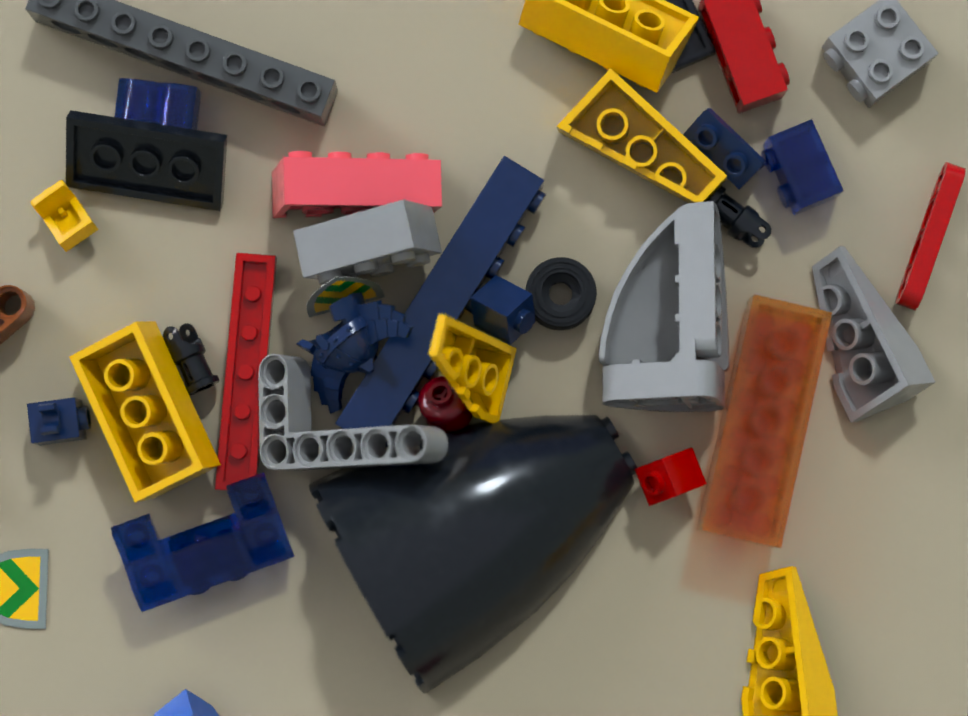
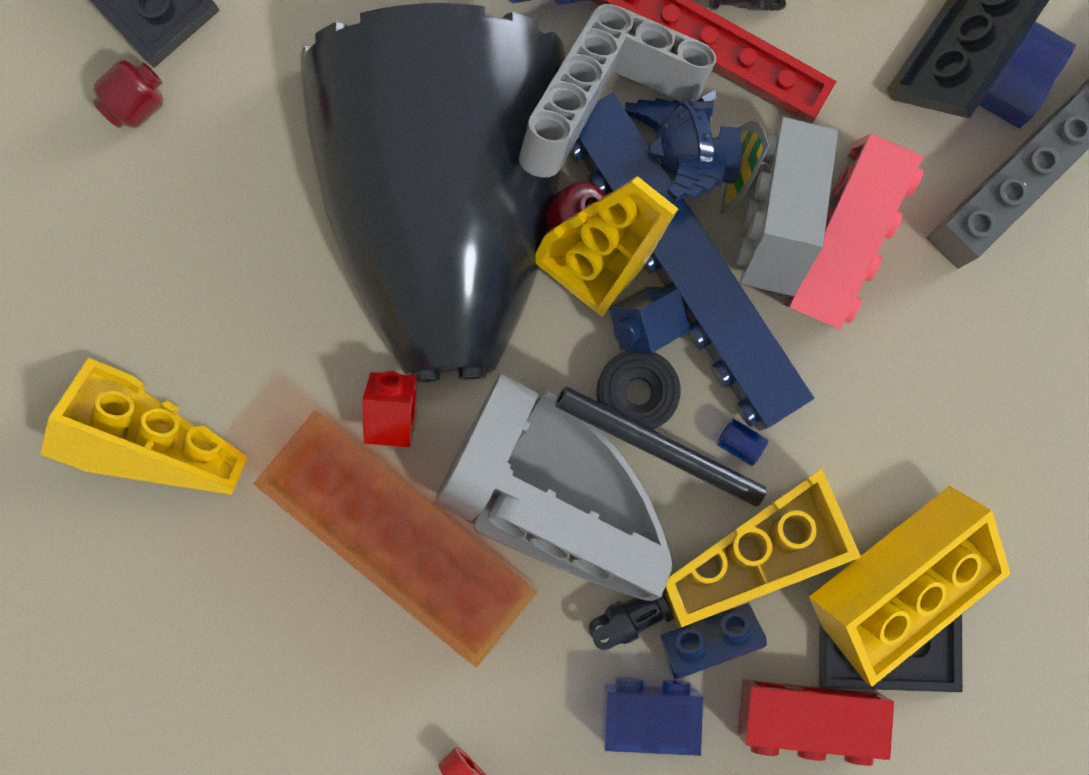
camera: 115 degrees right, 0 degrees up
(560, 195) = (742, 442): none -> clear blue hinge
(597, 255) = (660, 446): none -> black piece
(870, 348) = (423, 694): light grey wedge -> none

